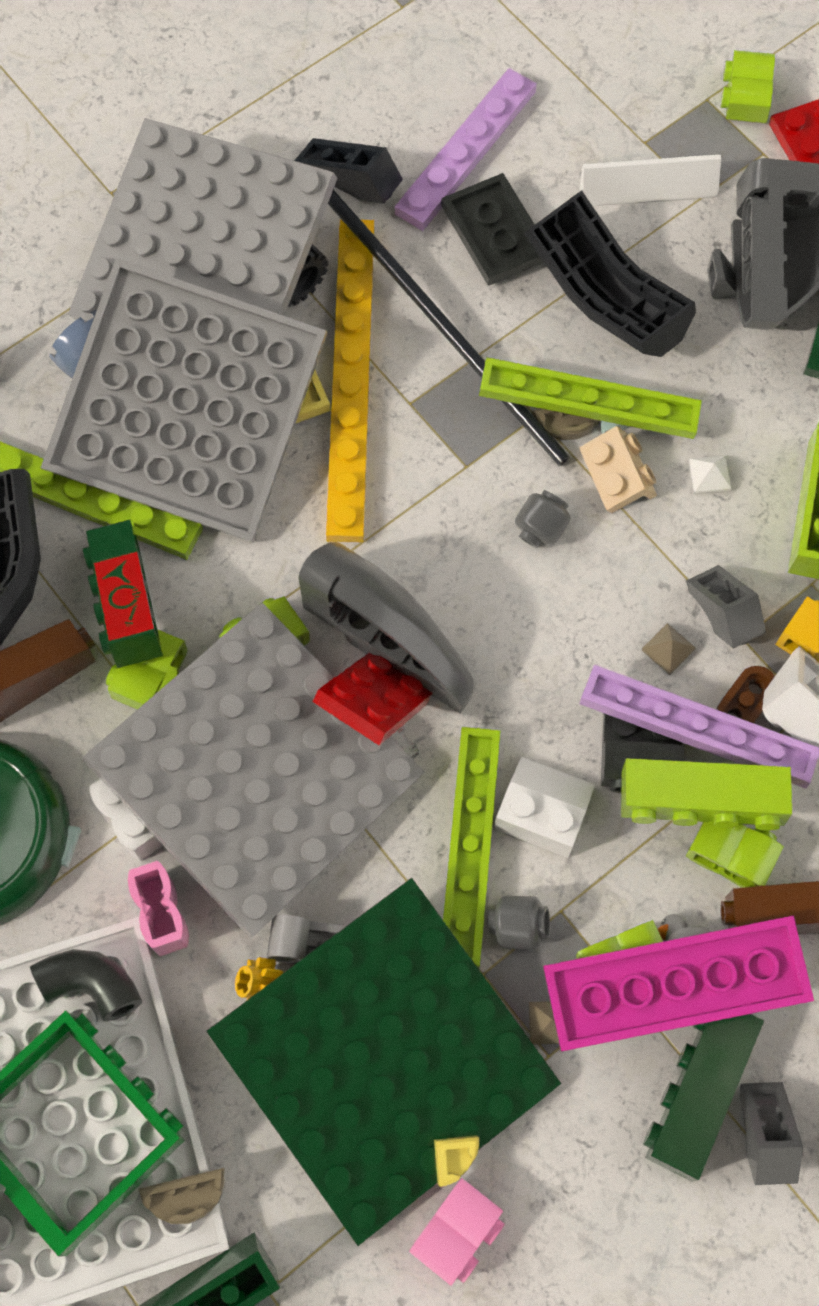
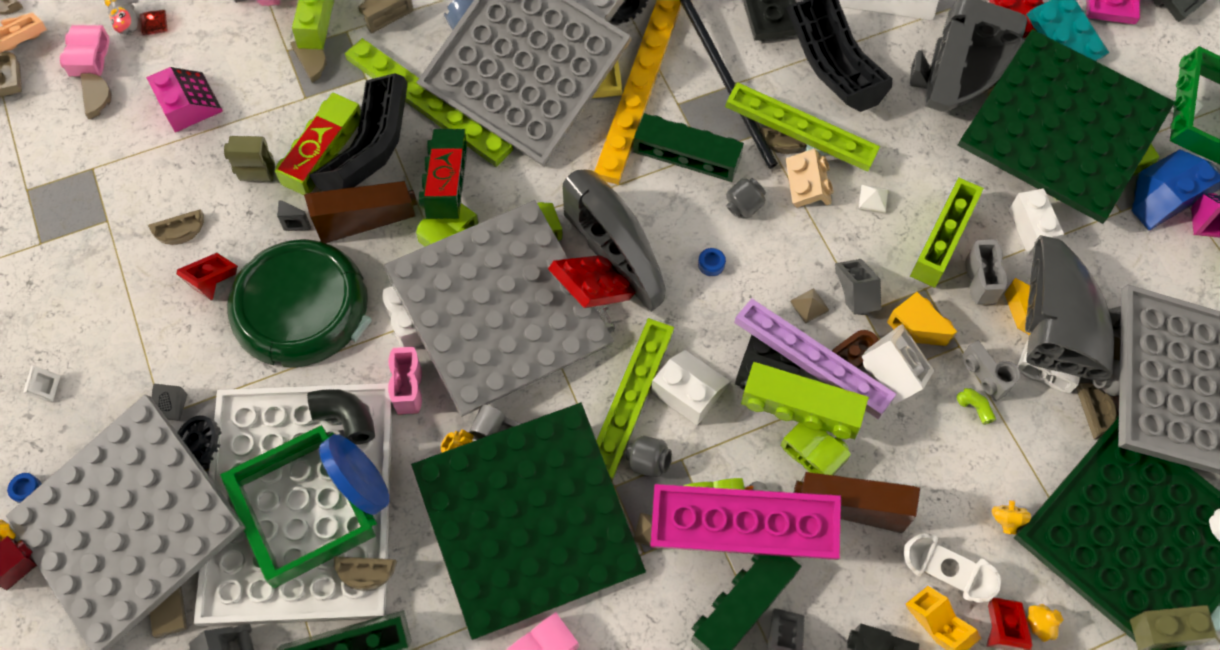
camera: 15 degrees right, 5 degrees down
(135, 1071) = (354, 474): none -> blue piece
(444, 465) = (688, 147): none -> dark green brick
(454, 1157) = (555, 598): light yellow tile -> none
(521, 621) = (711, 262): none -> blue tile

